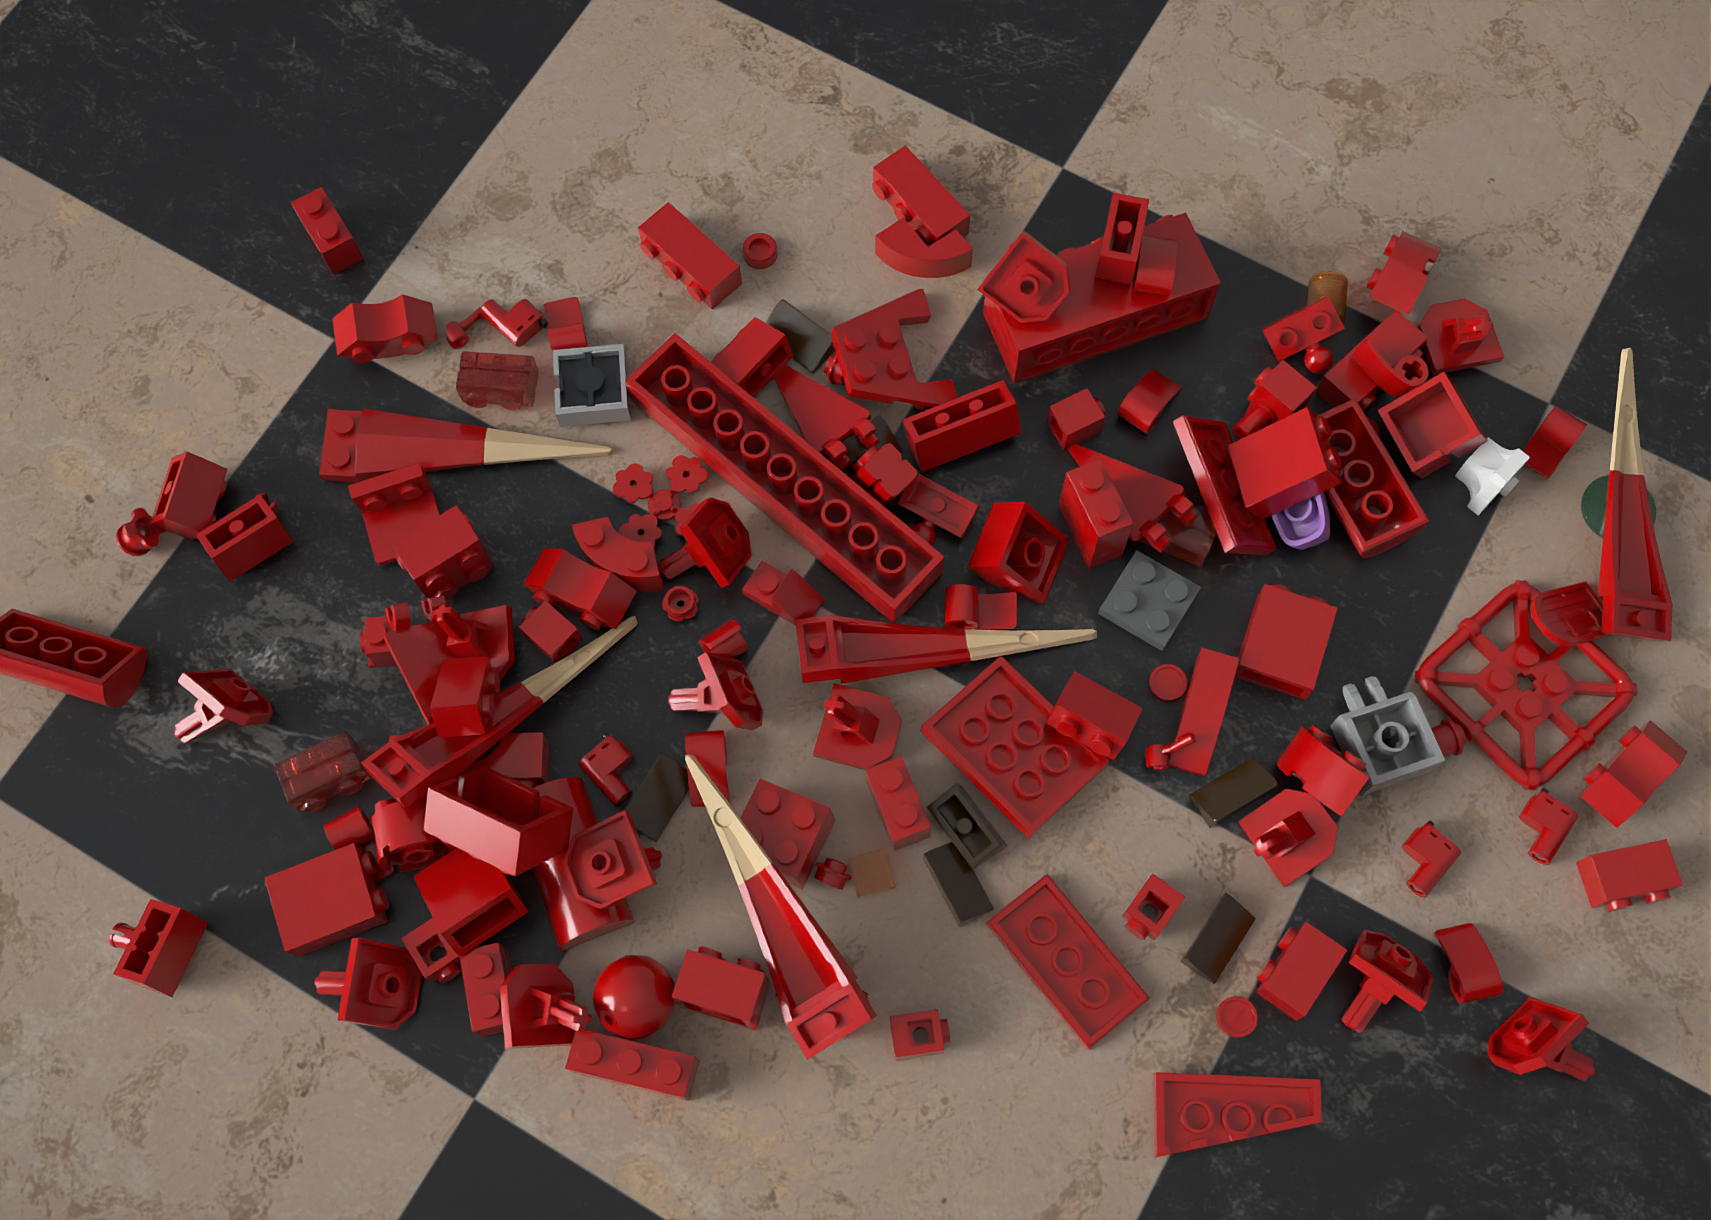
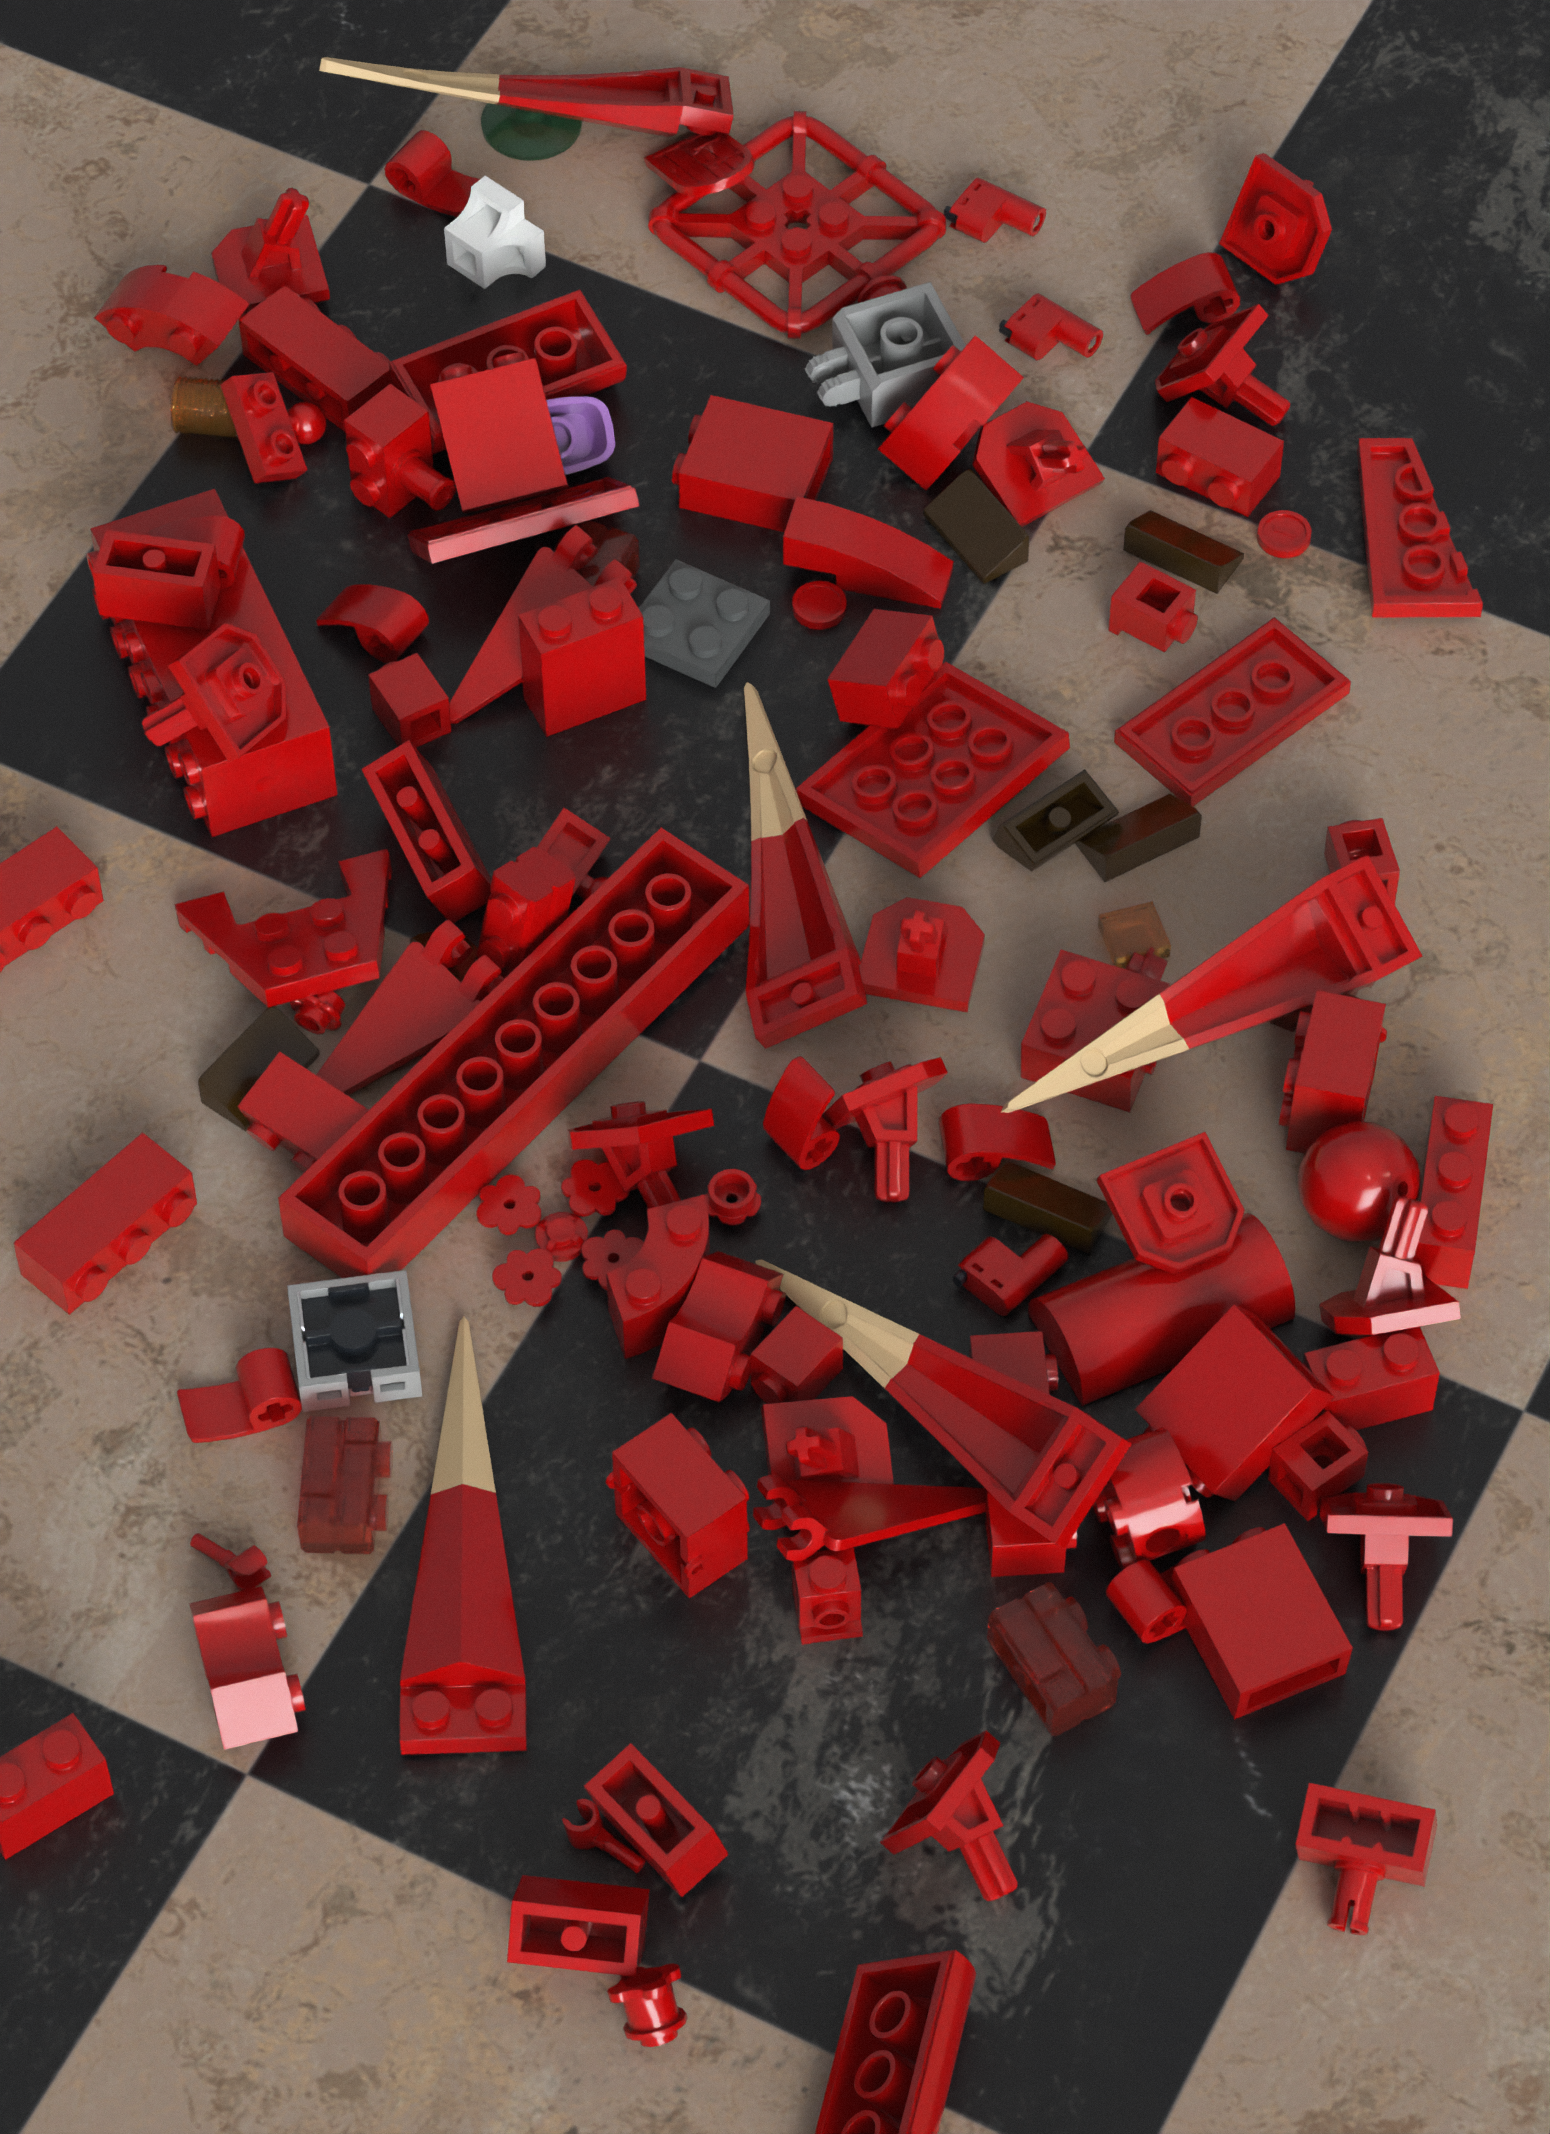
camera: 95 degrees left, 15 degrees down
(394, 507) = (600, 1603): red bracket -> none
(464, 696) = (930, 1423): red brick -> none
(497, 820) = (1132, 1369): red piece -> none
(518, 323) = (227, 1474): red piece -> none
(760, 251) = (91, 1136): red tile -> none
(782, 593) = (709, 1066): red slope -> none
(898, 803) = (1034, 896): red brick -> none
(907, 253) = (108, 921): red brick -> none
(979, 611) = (722, 815): red panel -> none
(1018, 551) = (627, 771): red slope -> none
(1158, 754) = (934, 605): red hand -> none
(1391, 378) = (354, 316): red panel -> none
(1432, 425) = (422, 284): red piece -> none
(1630, 873) = (1054, 133): red brick -> none
(1632, 772) = (919, 119): red brick -> none

